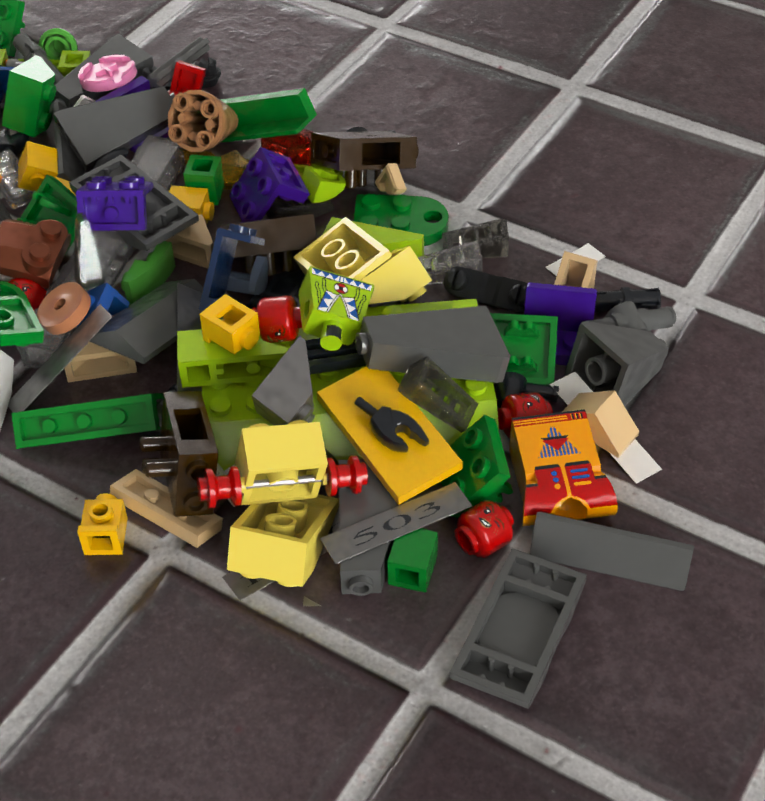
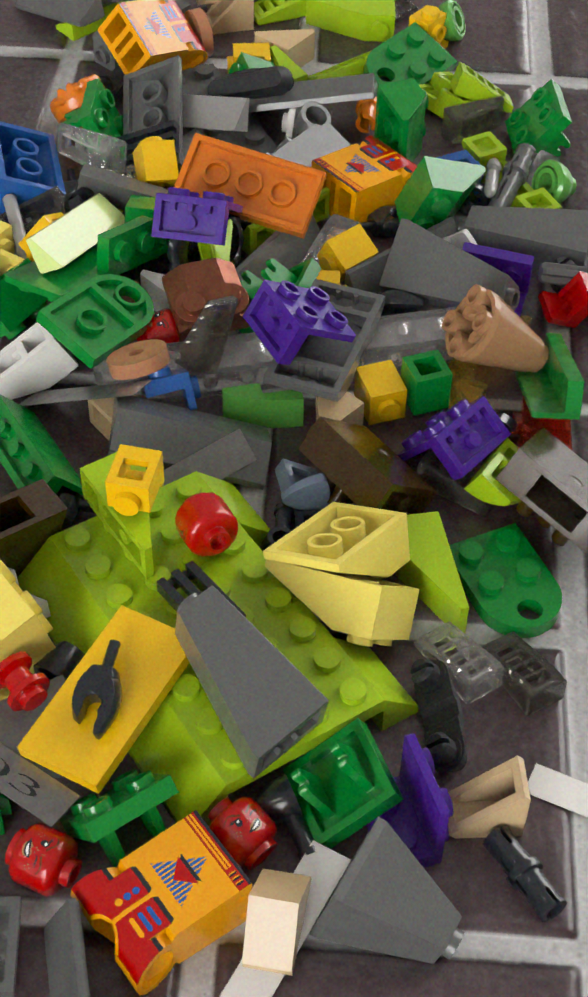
camera: 60 degrees right, 0 degrees up
(107, 75) = (514, 232): bright pink tile -> none
(222, 261) = (259, 451): dark blue panel -> none
(287, 389) = (88, 575): flat silver slope -> none
(333, 307) = (230, 556): lime torso -> none
(391, 180) = (540, 538): tan tile -> none
(417, 388) = (179, 762): clear smoke slope -> none
(629, 316) = (470, 888): dark grey pin -> none

